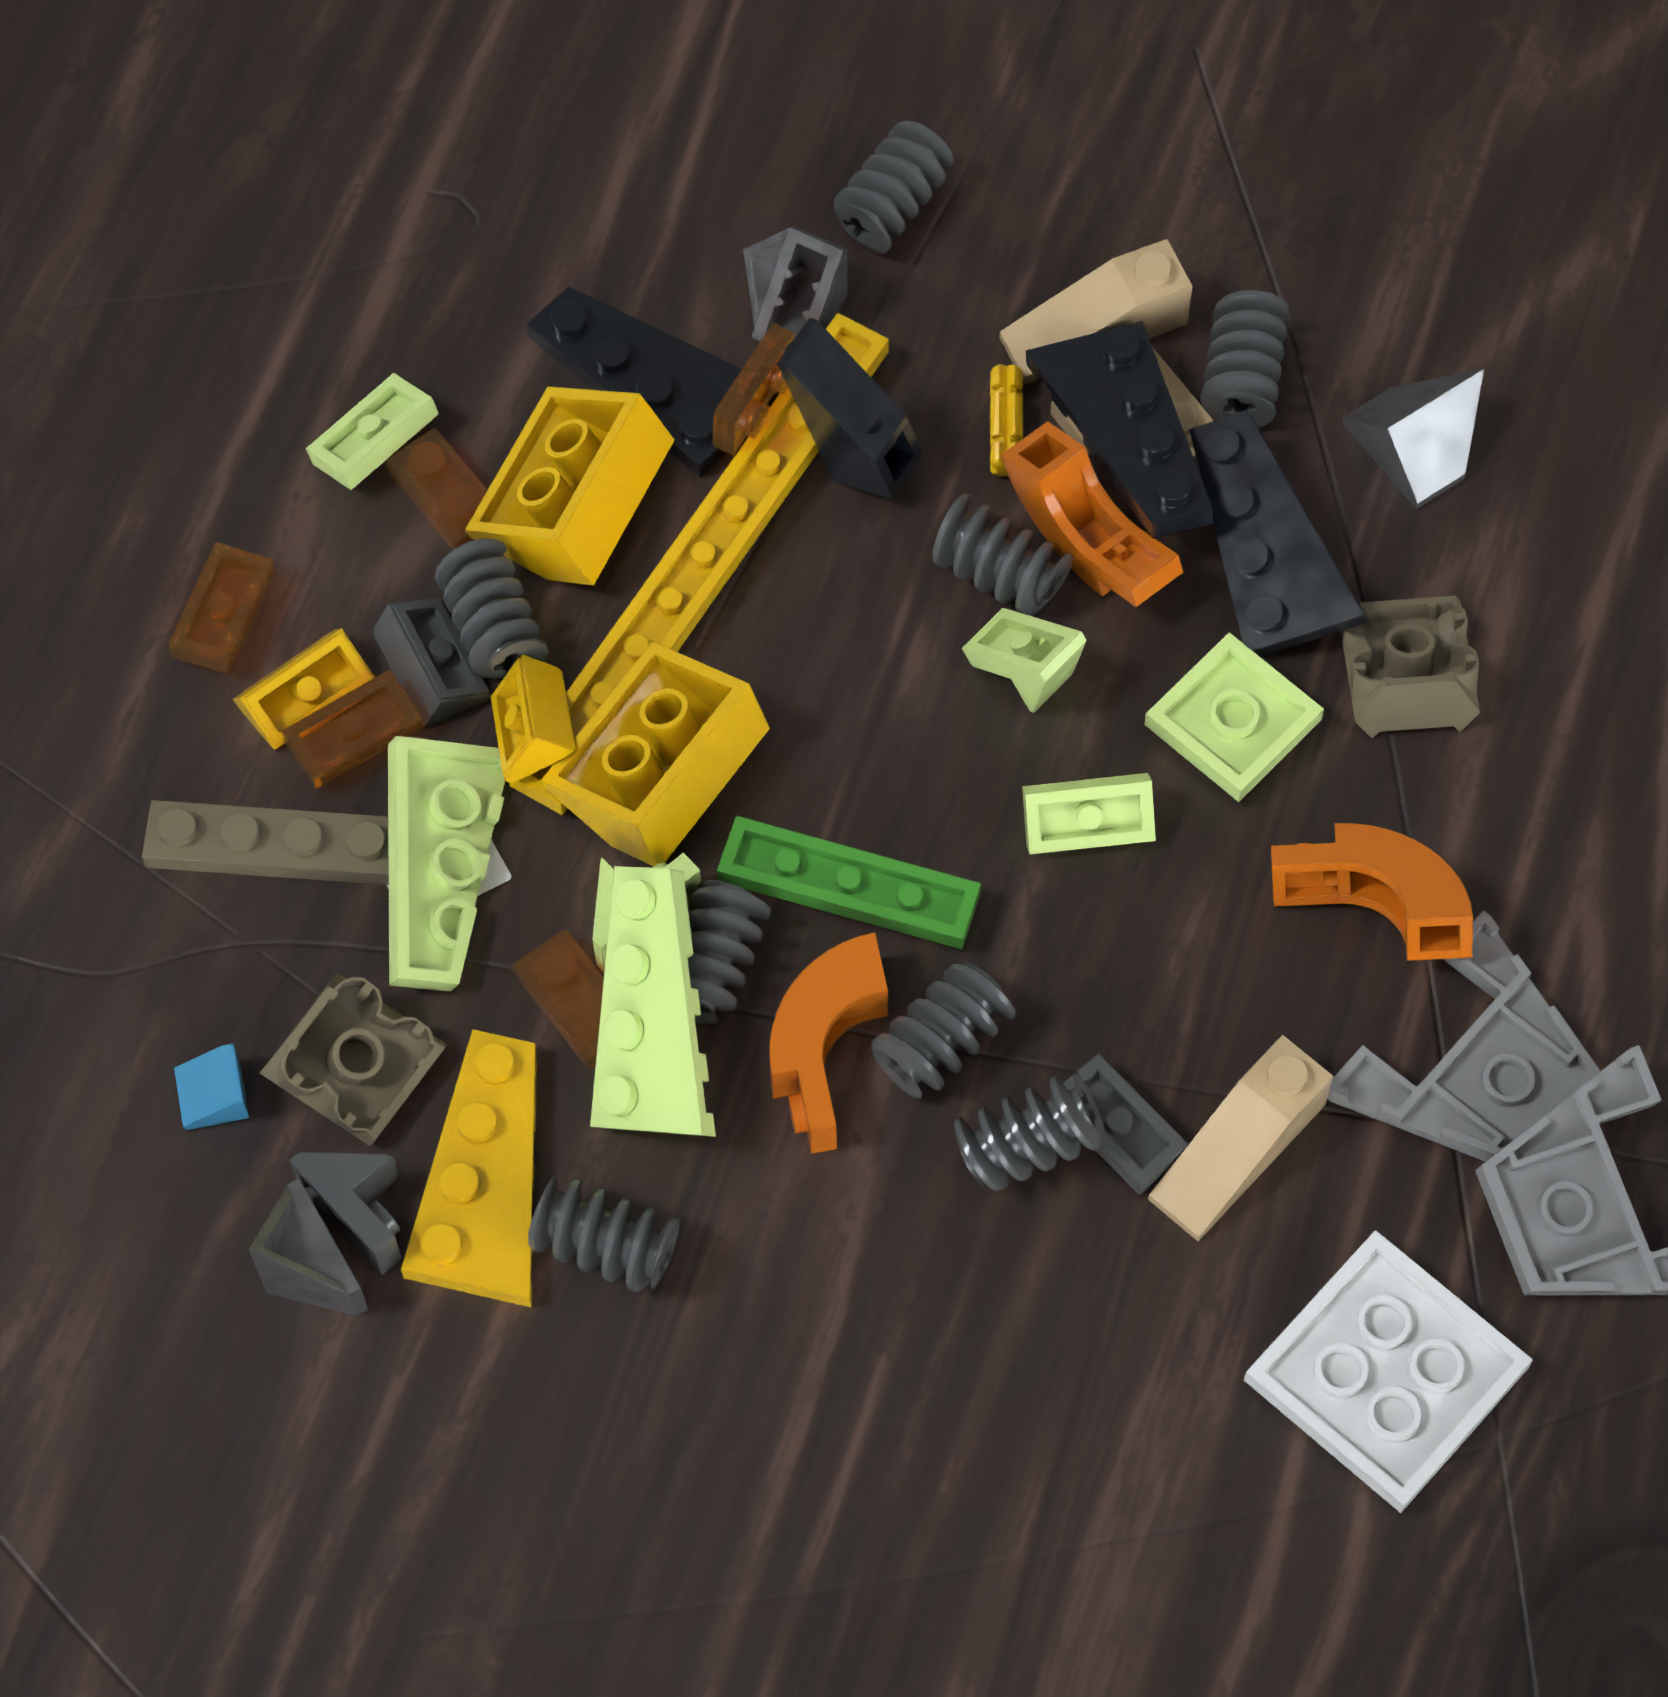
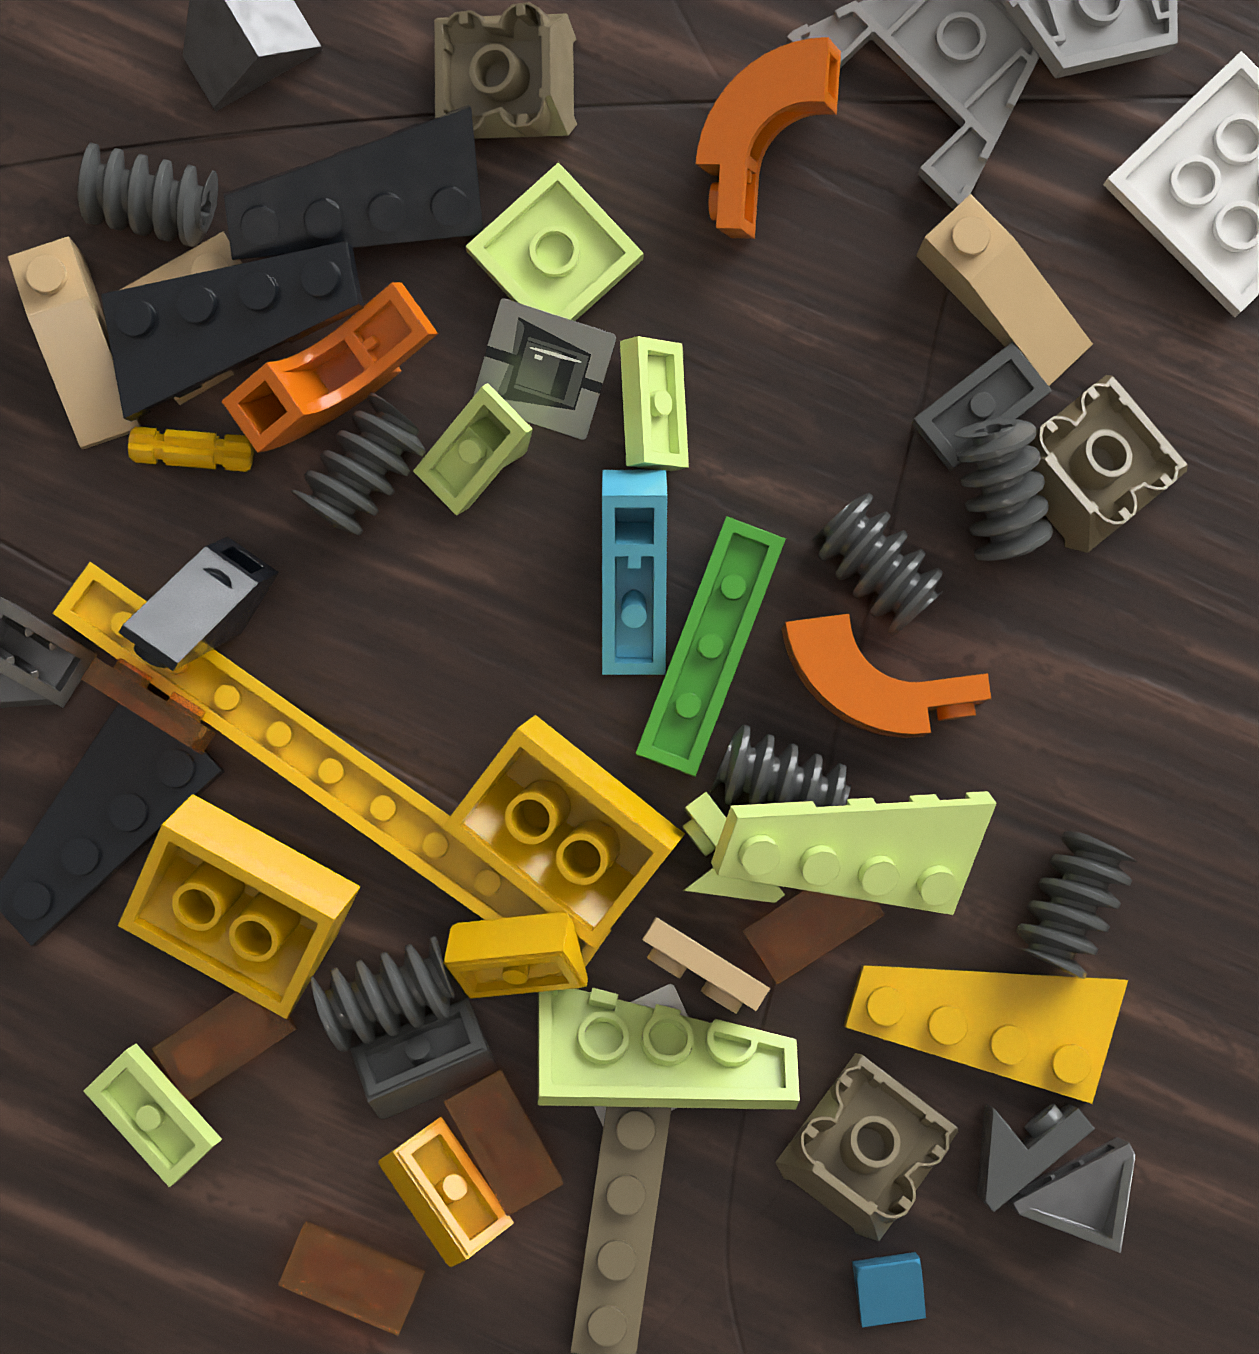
camera: 90 degrees left, 20 degrees up
(514, 891) = (724, 981): none -> tan plate
(924, 802) = (634, 572): none -> medium azure slope
(1071, 1243) = (1101, 464): none -> dark tan slope
(1114, 714) = (546, 367): none -> sticker

